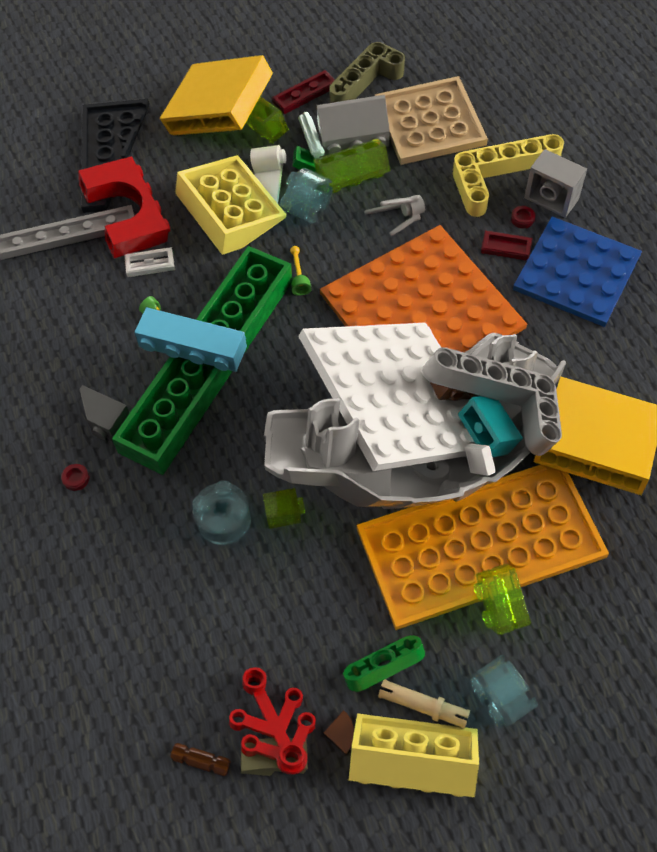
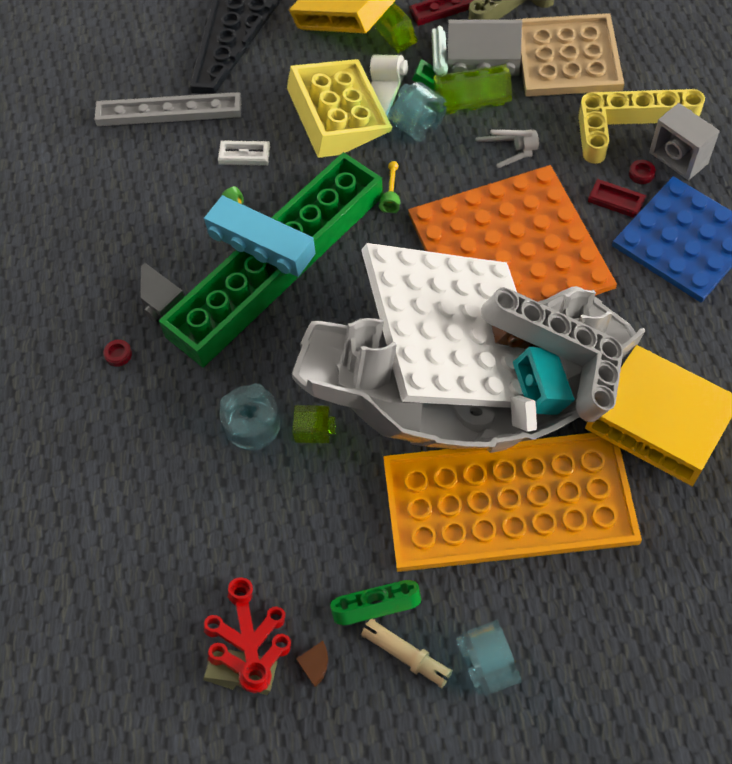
camera: 15 degrees right, 0 degrees up
(126, 180) = (237, 65): red arch -> none
(200, 759) = (168, 657): reddish brown axle -> none
(414, 755) = (381, 702): light yellow slope -> none
(502, 599) = (513, 563): clear neon green brick -> none

